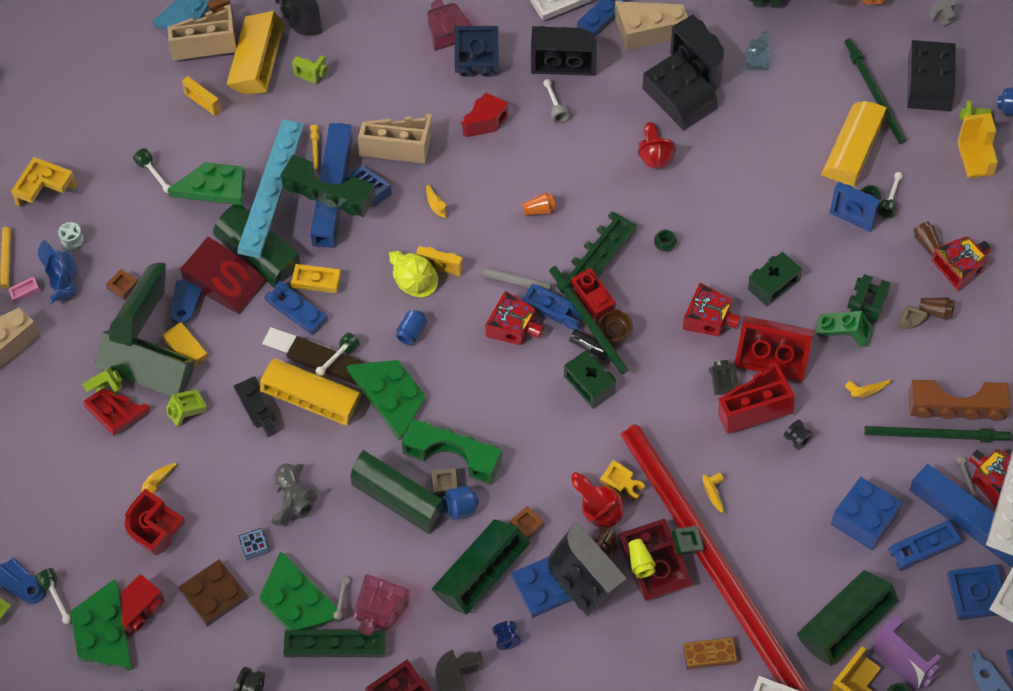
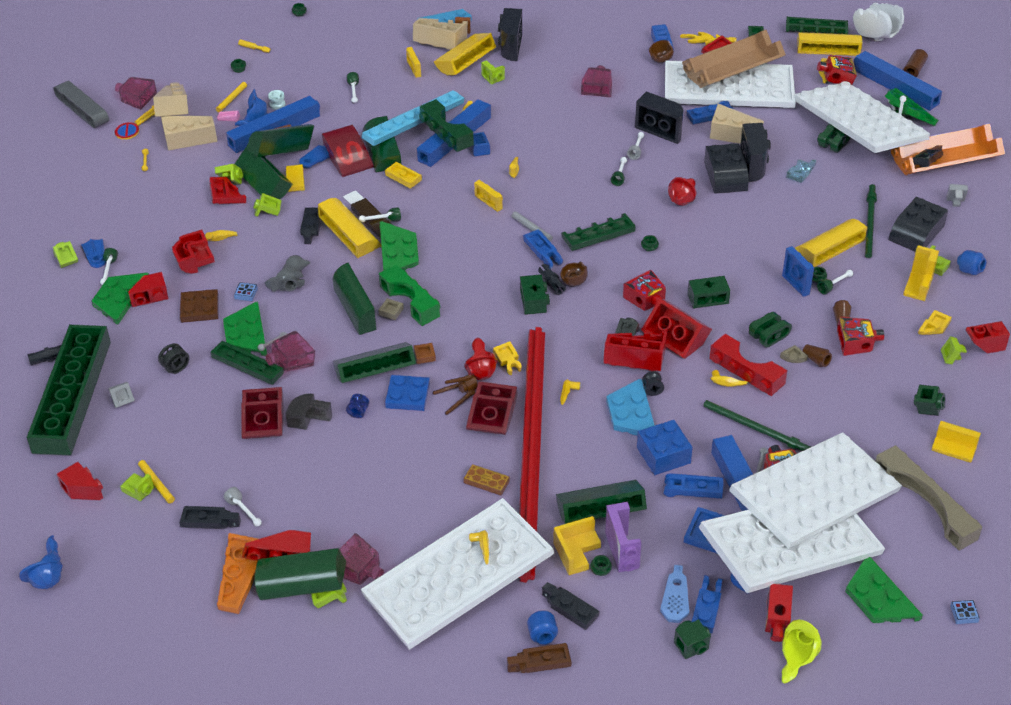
camera: 30 degrees right, 15 degrees down
(40, 174) = (281, 62): yellow panel -> none
(92, 284) = (292, 114): none -> blue brick
(212, 183) = (381, 104): green wing -> none
(296, 308) = (378, 186): blue plate -> none
(396, 140) = (514, 124): tan wedge -> none
(411, 327) = (440, 221): blue brick -> none
(413, 274) = (465, 196): neon yellow piece -> none
(459, 502) = (390, 323): blue head -> none
(476, 50) = (604, 98): dark blue plate -> none
(486, 116) = (582, 135): red slope -> none
(512, 321) = (508, 243): red torso -> none
(539, 205) = (581, 192): orange cone -> none
(565, 287) = (557, 239): dark green bar -> none
(566, 161) = (616, 176): none -> dark green hinge
(584, 570) = (434, 388): black brick -> none
(593, 294) = (572, 247): red slope -> none
(641, 560) = (477, 399): neon yellow cone -> none
(687, 540) = (520, 403): dark green tile -> none
(796, 481) = (630, 408): none -> dark azure wing
(846, 323) = (747, 337): green bracket -> none
(850, 355) = (765, 376): none -> red arch
(929, 400) = (810, 423): dark orange arch -> none

